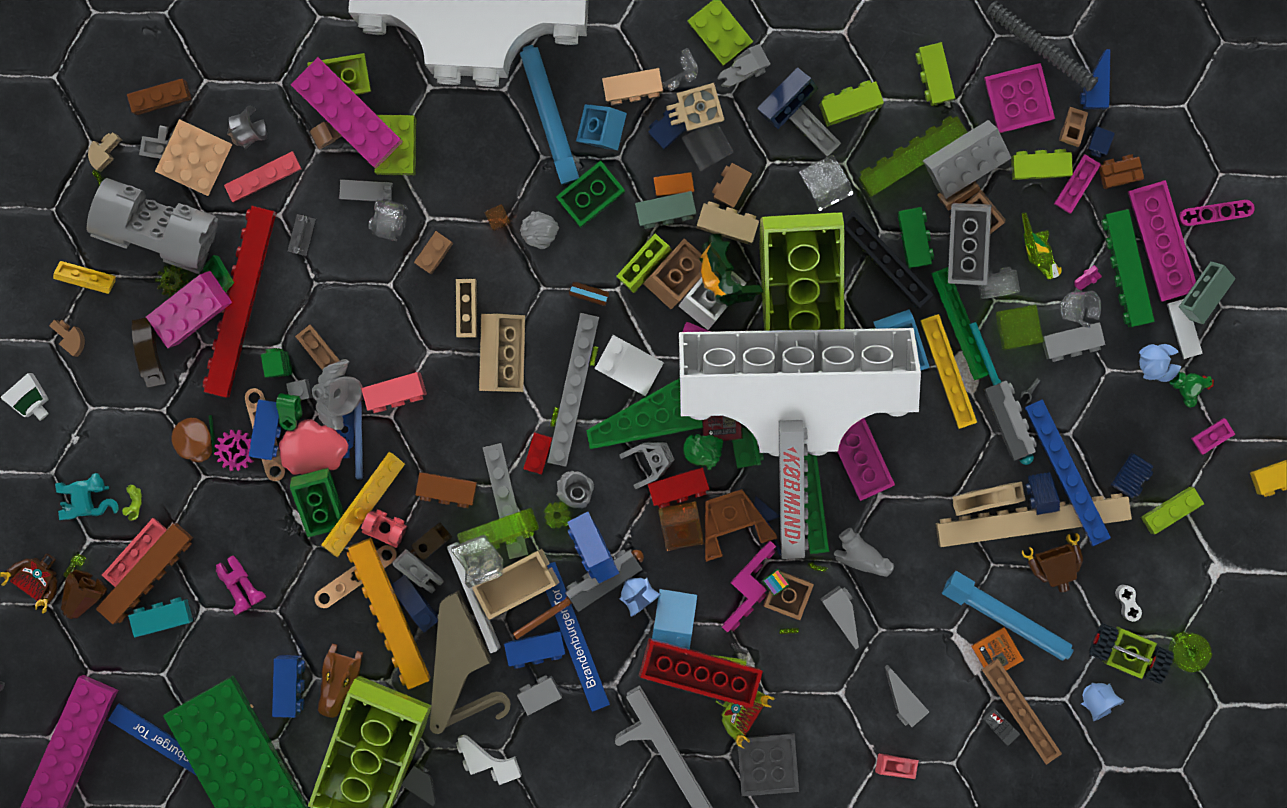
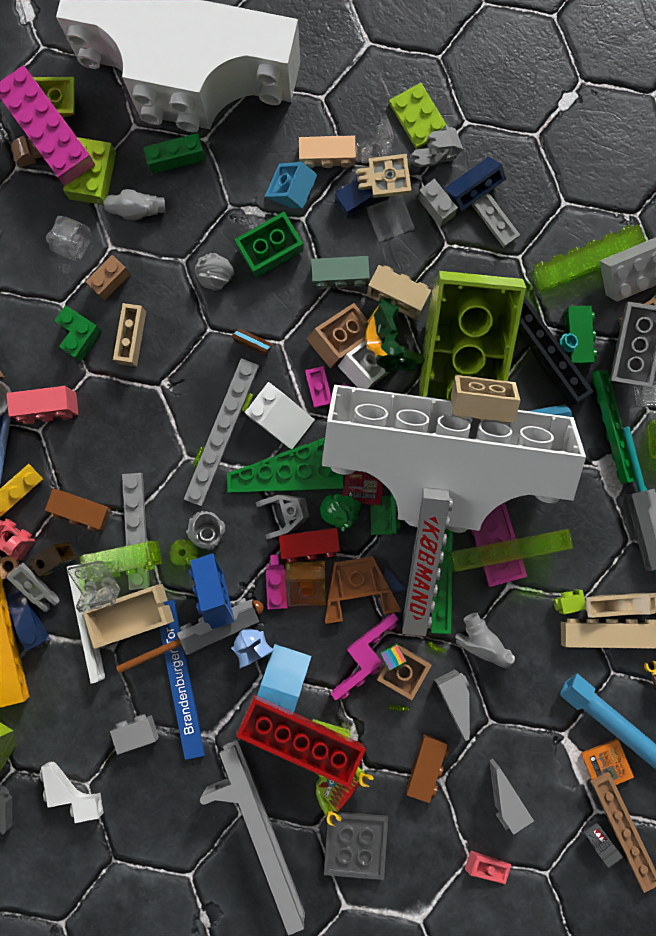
camera: 15 degrees right, 5 degrees down
(365, 190) = (50, 210): light grey hinge -> none
(417, 311) = (81, 333): none -> green brick
(446, 174) = (134, 205): none -> light grey animal
(458, 654) = (56, 677): dark tan piece -> none
(478, 113) = (174, 153): none -> green brick
(497, 217) = (176, 253): clear orange brick -> none
(502, 352) = (157, 384): tan slope -> none
(535, 649) = (138, 686): blue brick -> none
(538, 453) = (176, 489): red plate -> none
(549, 115) = (242, 164): dark azure brick -> none
(644, 263) = (309, 317): lime brick -> none
(652, 531) = (276, 584): none -> dark pink hinge
(662, 330) = (318, 386): none -> dark pink plate
(673, 184) = (351, 248): orange slope -> none
(732, 185) = (409, 257): medium nougat brick -> none
(752, 123) = (437, 202): none -> light grey brick
(824, 327) = (485, 399): none -> tan brick
(825, 682) = (427, 768): none -> dark orange brick
(826, 182) = (501, 264): clear bracket -> none
(851, 103) = (536, 196): lime brick -> none
(873, 463) = (510, 550): none -> clear neon green brick
(906, 247) = (568, 342): none -> teal plate
(935, 74) = (620, 184): lime brick -> none
(940, 503) = (570, 602): none -> lime brick
(948, 371) = (596, 473): yellow plate -> none
(959, 196) = (619, 306): medium nougat plate -> none

